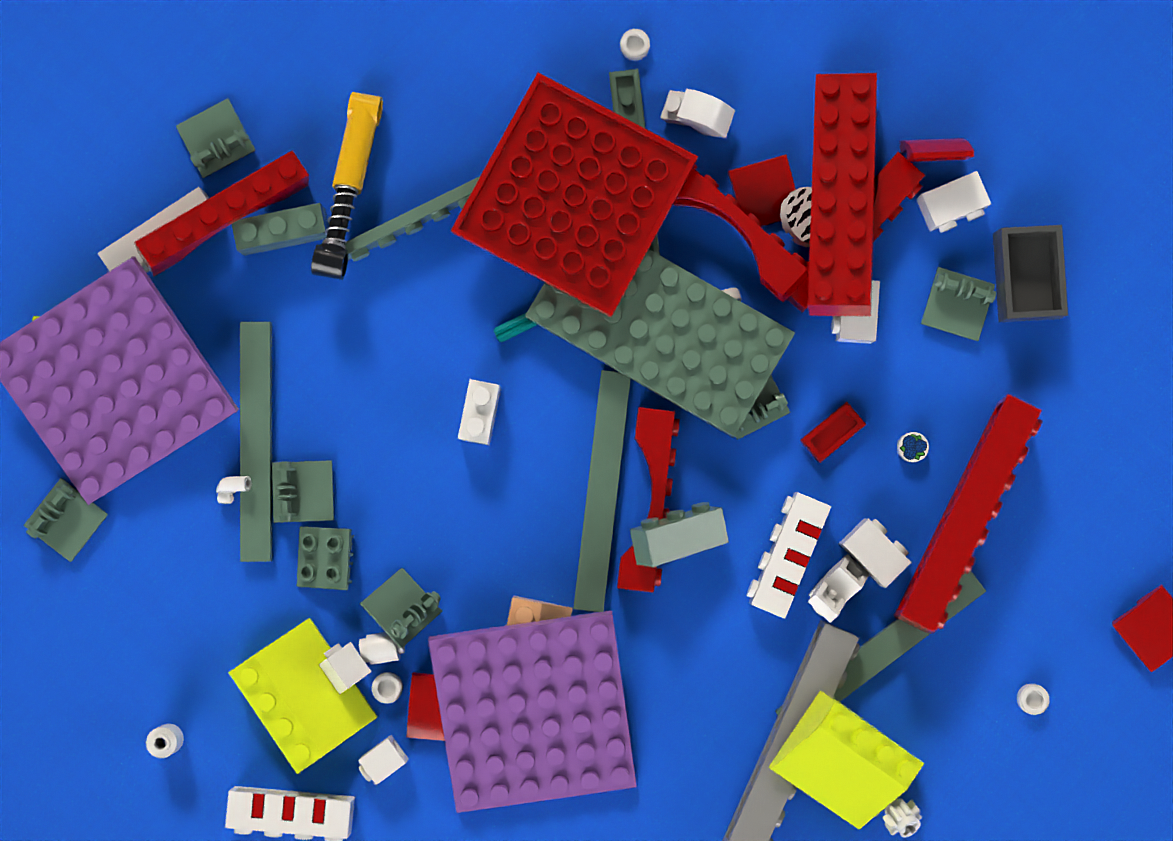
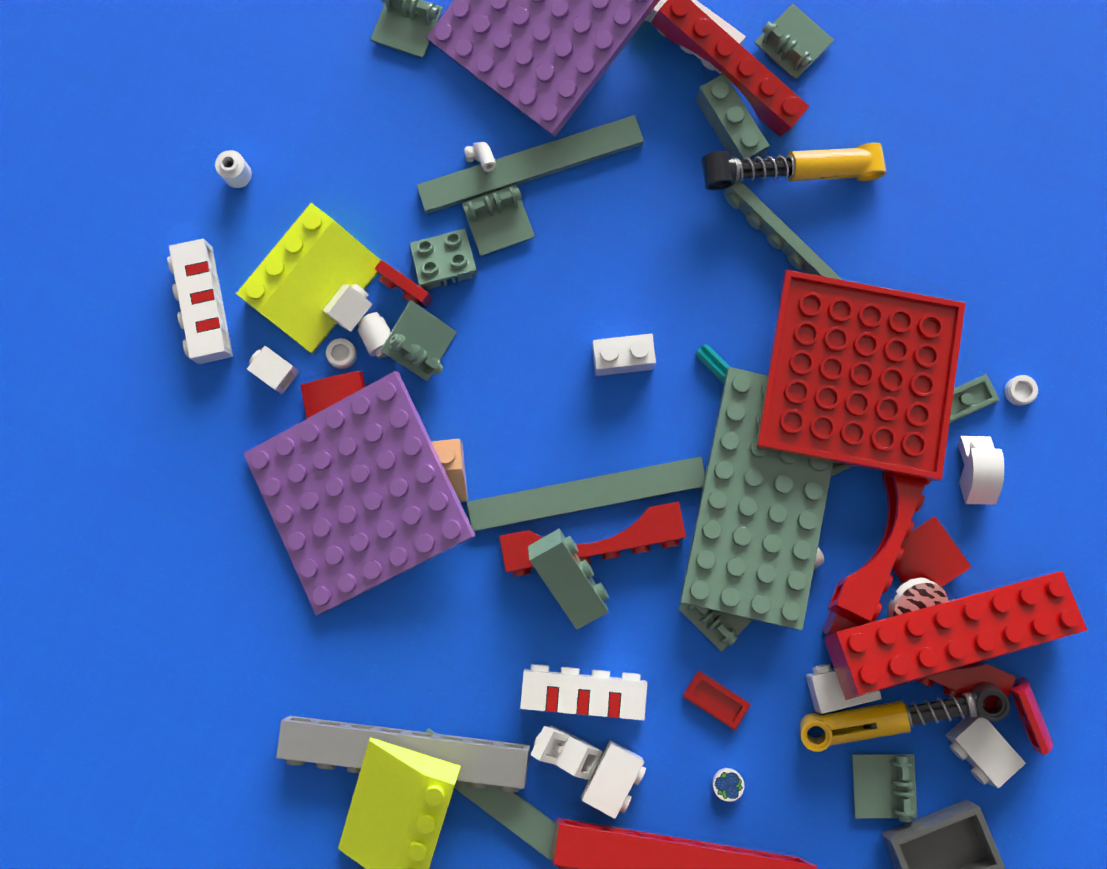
camera: 75 degrees right, 5 degrees down
(349, 599) = (392, 278): none -> red plate
(901, 272) = (898, 717): none -> piece

